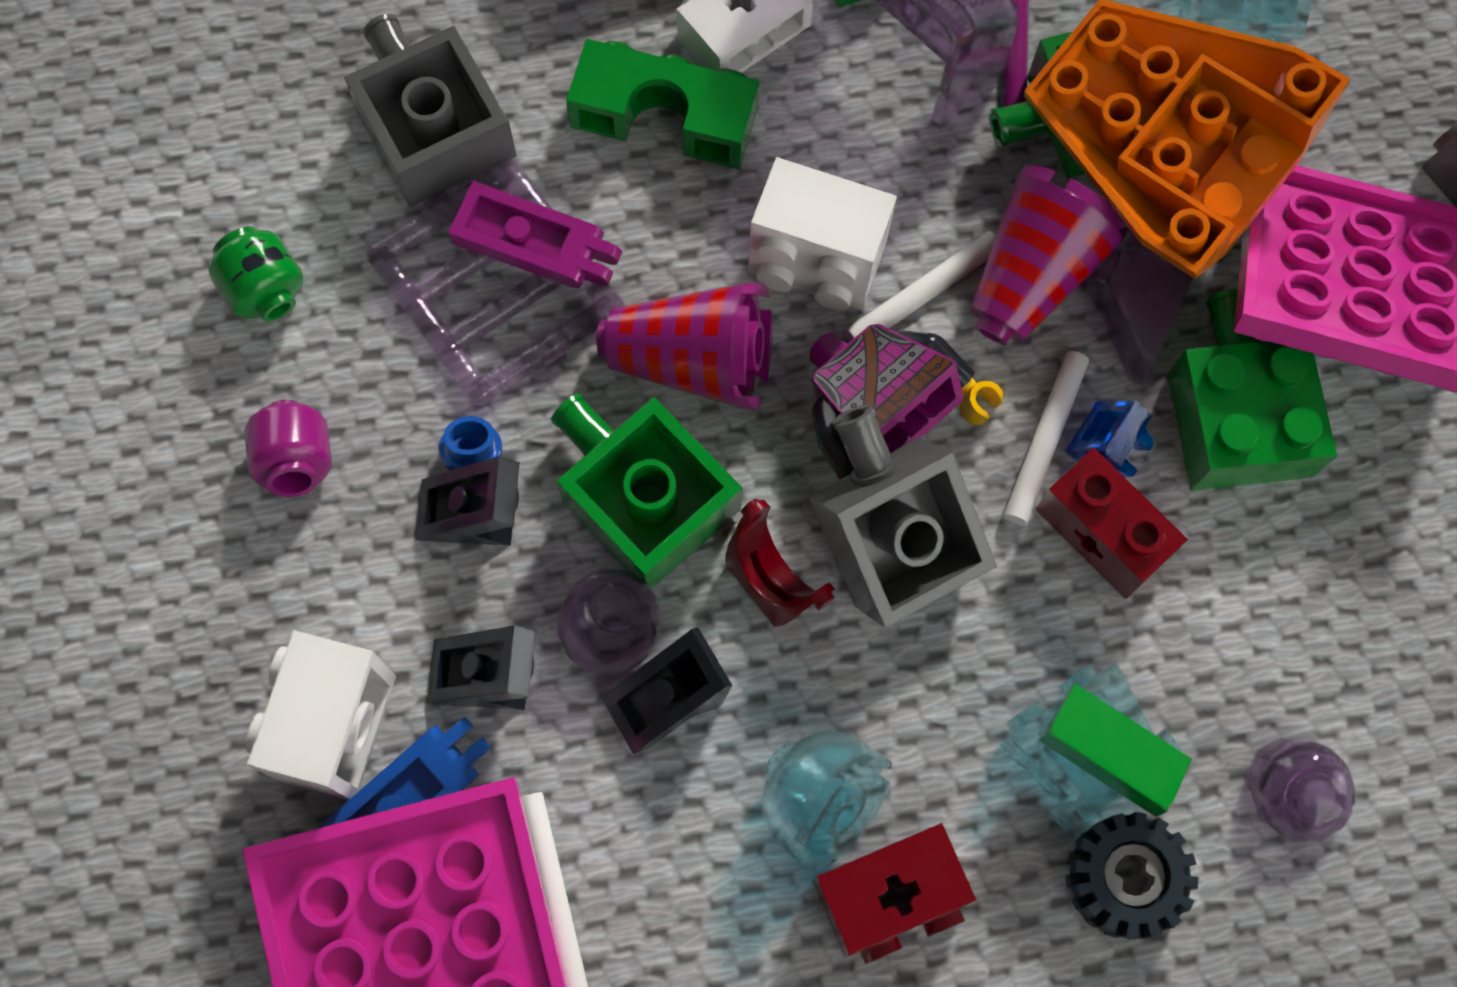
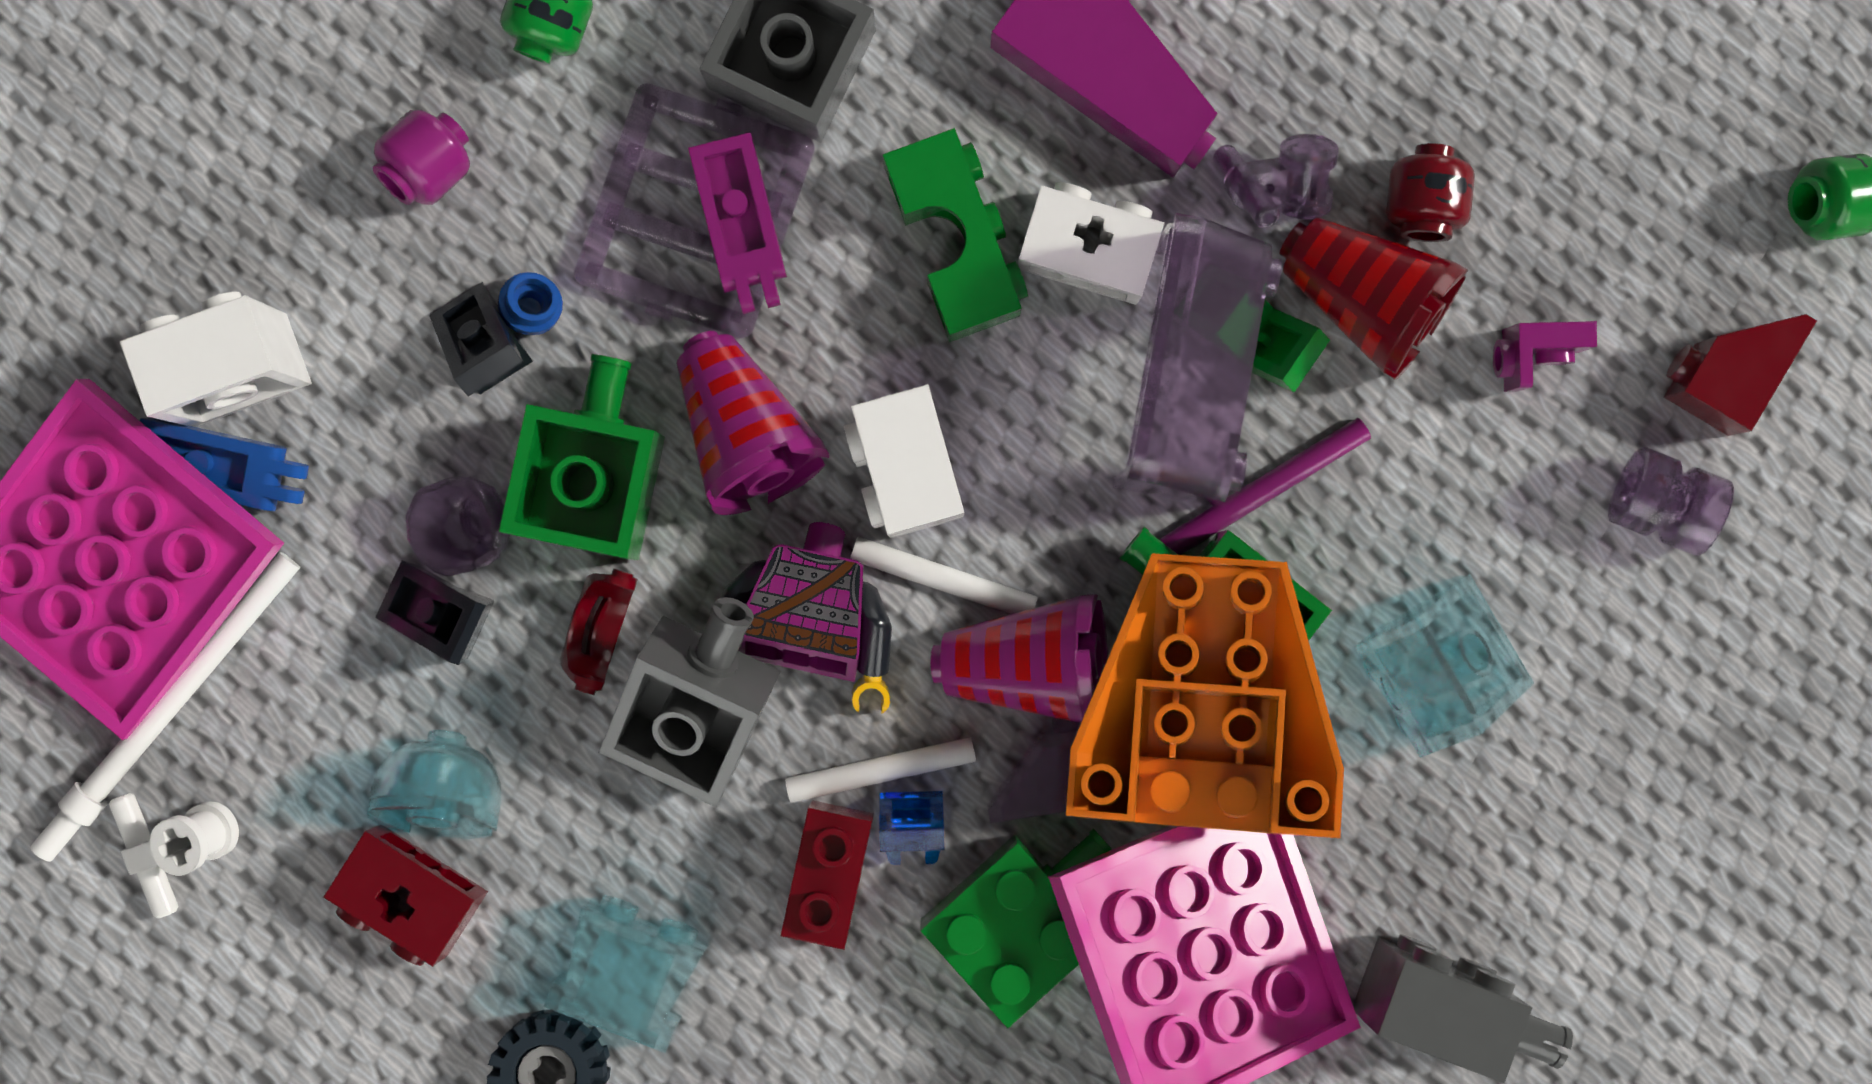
camera: 60 degrees right, 15 degrees up
(483, 669) = (353, 453): black slope -> none
(1116, 751) = (621, 1002): green slope -> none

